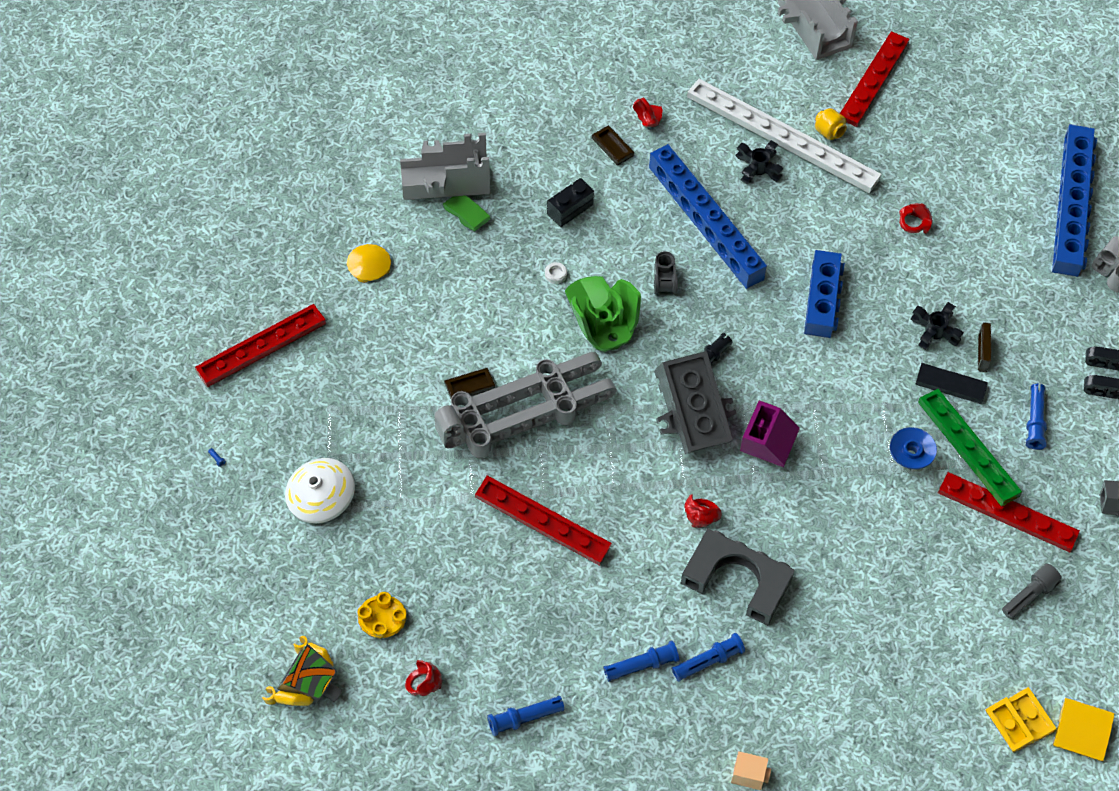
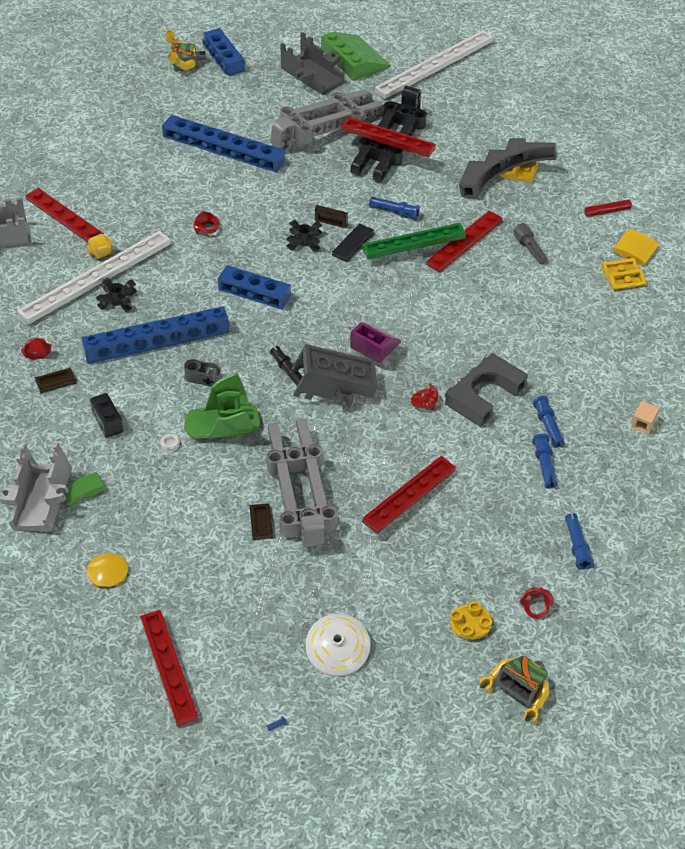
camera: 75 degrees left, 10 degrees down
(914, 440) = (407, 268): blue dish -> none

